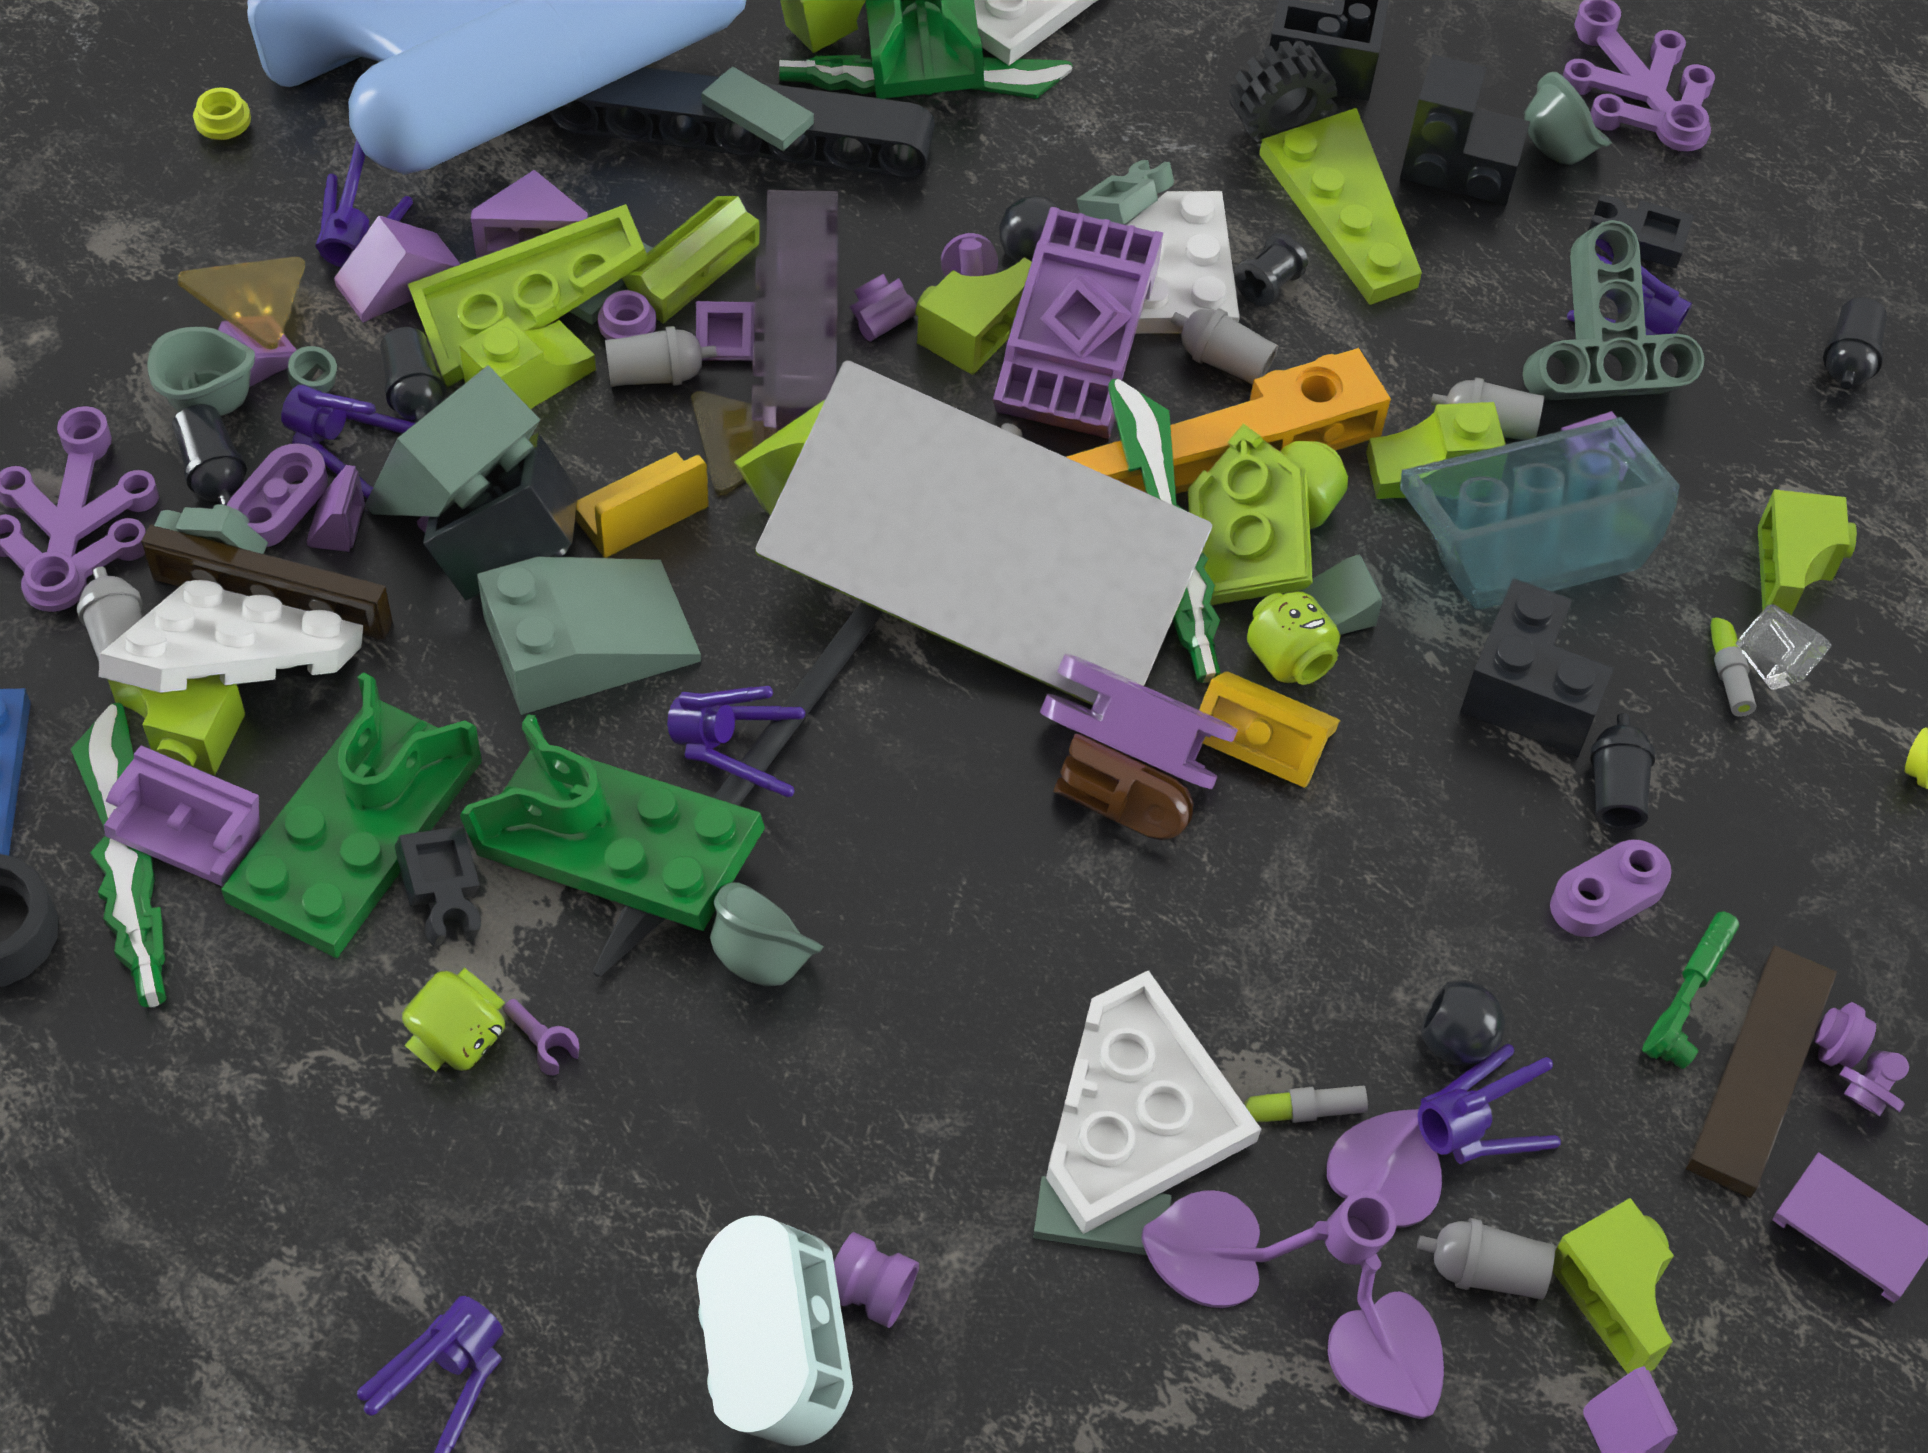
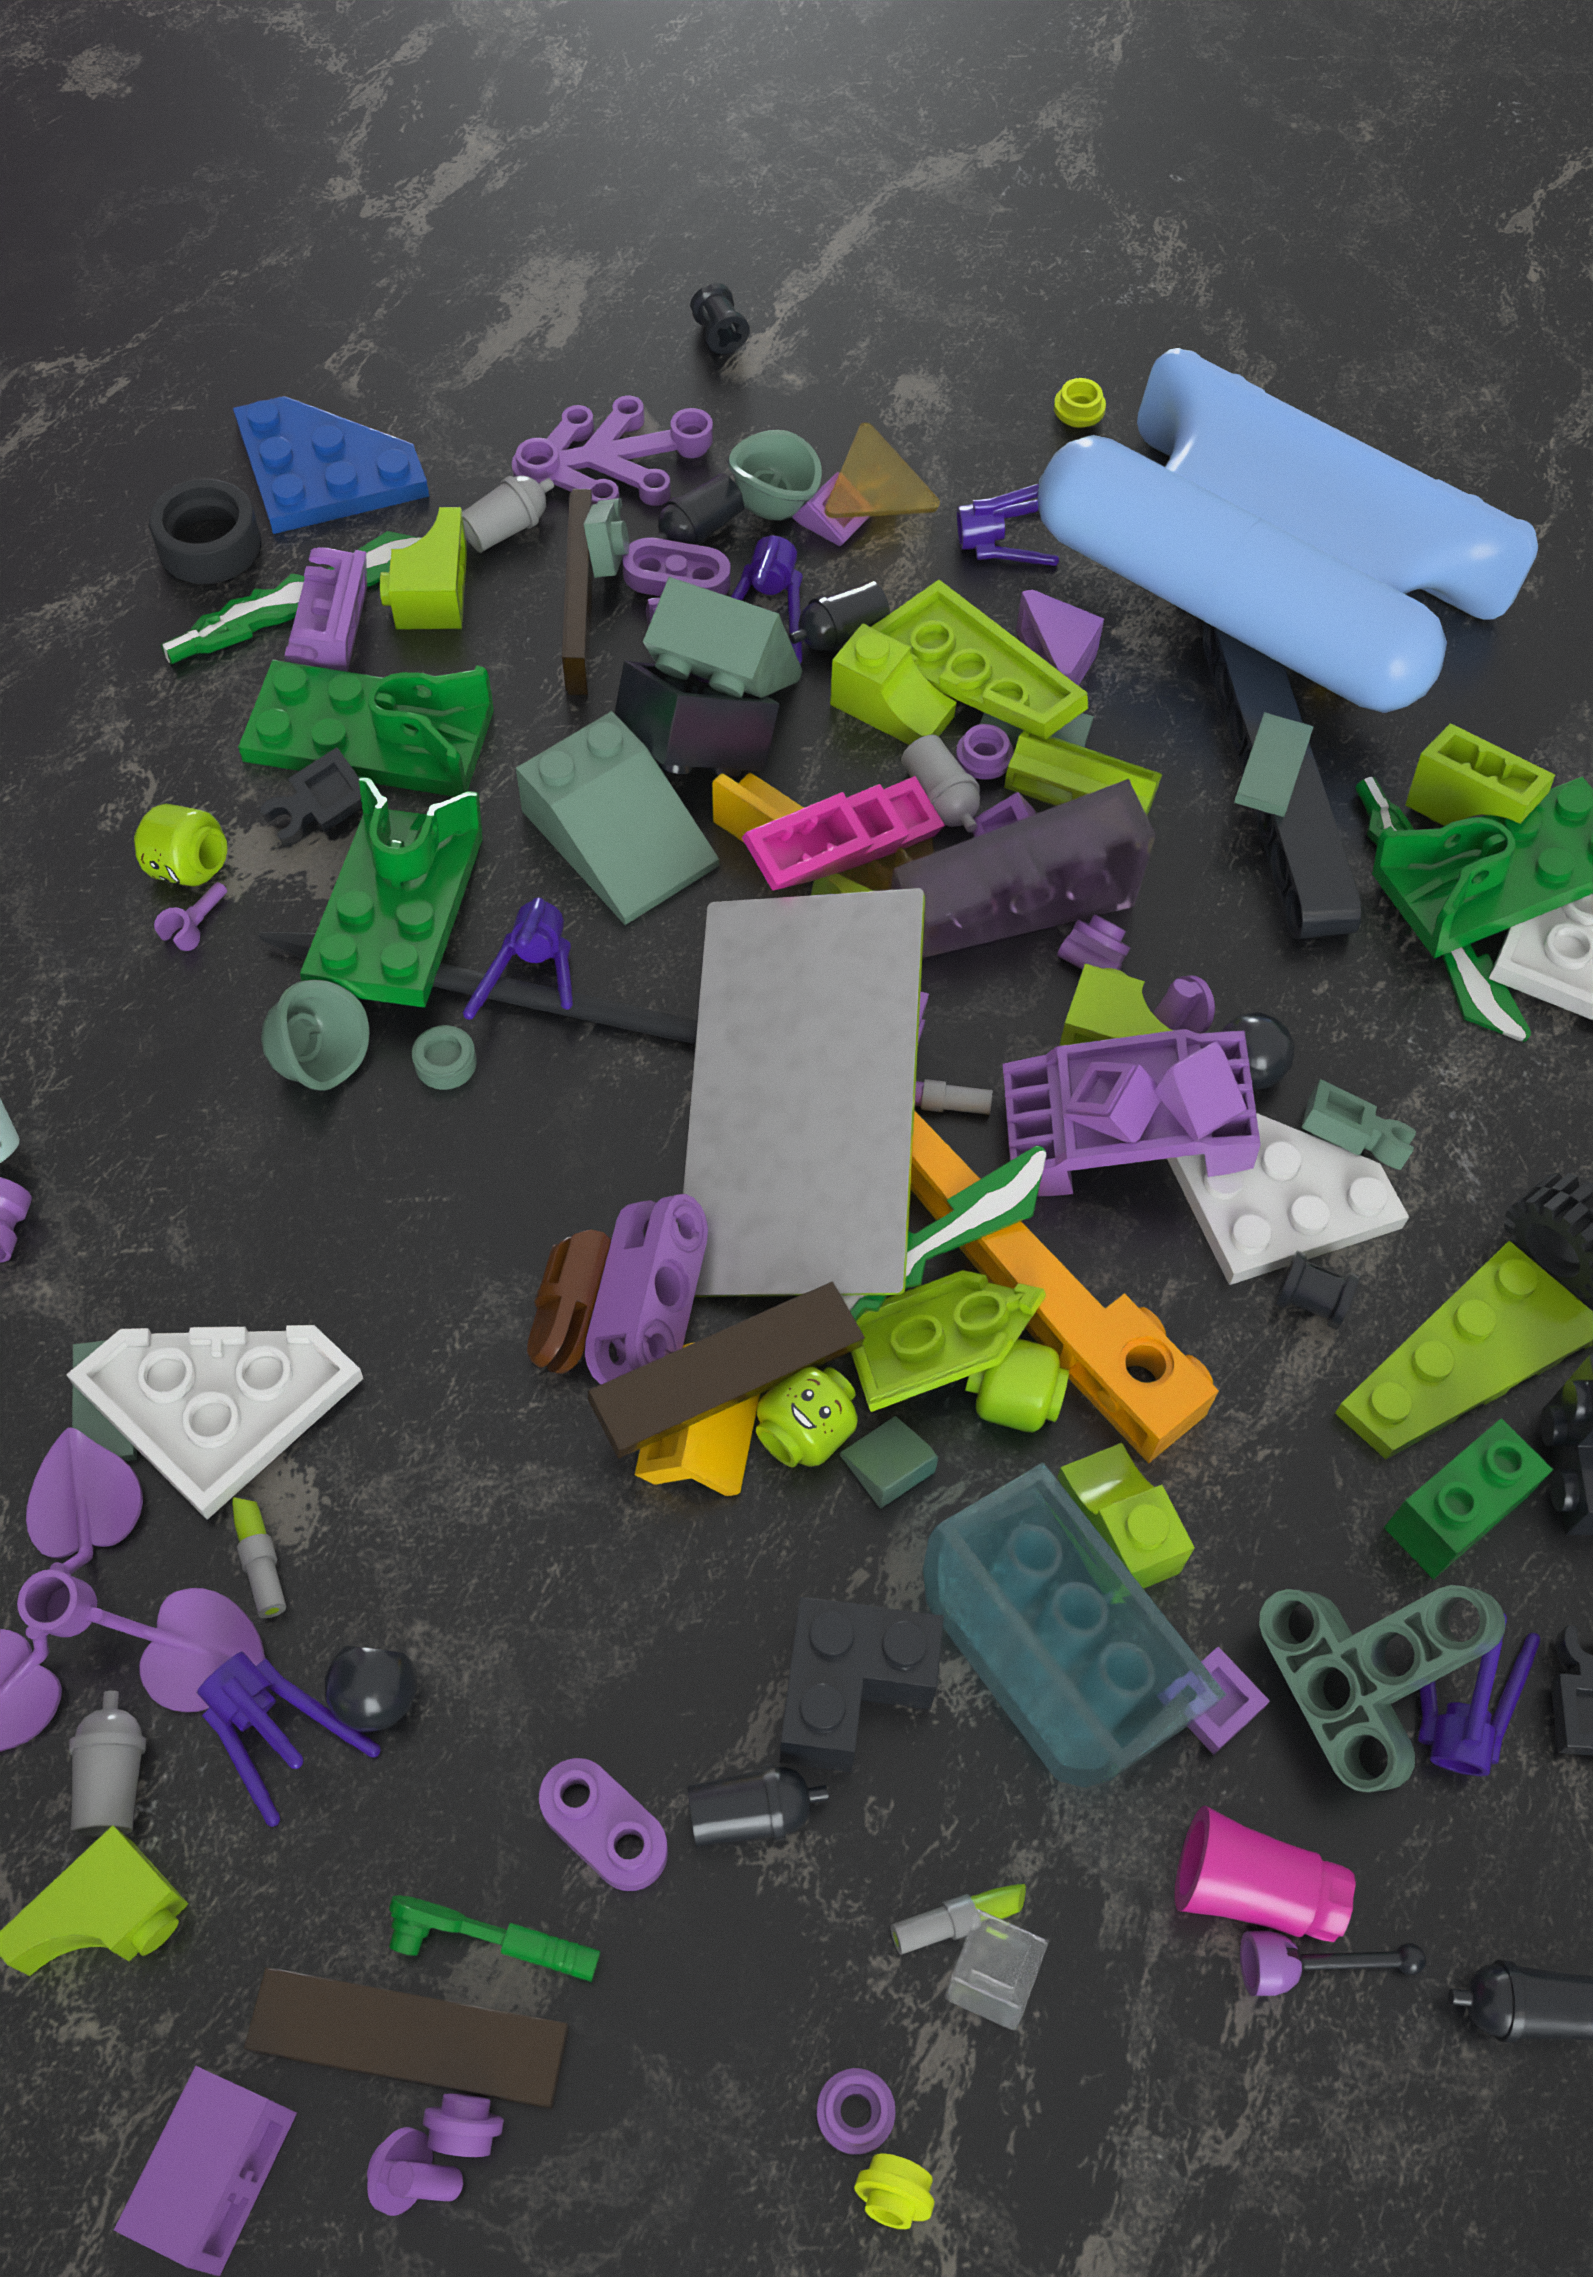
camera: 75 degrees right, 5 degrees up
(229, 634) = (498, 573): white plate -> none
(304, 365) = (819, 544): sand green hinge -> none
(386, 262) = (971, 567): medium lavender slope -> none
(713, 426) = (842, 833): none -> dark pink slope
(807, 842) = (444, 1057): none -> sand green tile
(1111, 246) = (1202, 1092): none -> medium lavender slope
(1225, 344) = (1186, 1269): light grey piece -> none
(1251, 669) = (724, 1369): none -> dark brown tile
(1479, 239) = (1467, 1498): none -> green brick
(1517, 410) = (1220, 1569): light grey piece -> none
(1738, 474) = (1261, 1880): none -> dark pink plant
(1801, 543) = (1162, 1968): lime arch -> none
(1805, 470) = (1274, 1964): none -> hinge
(1873, 758) = (882, 2111): none -> medium lavender plate

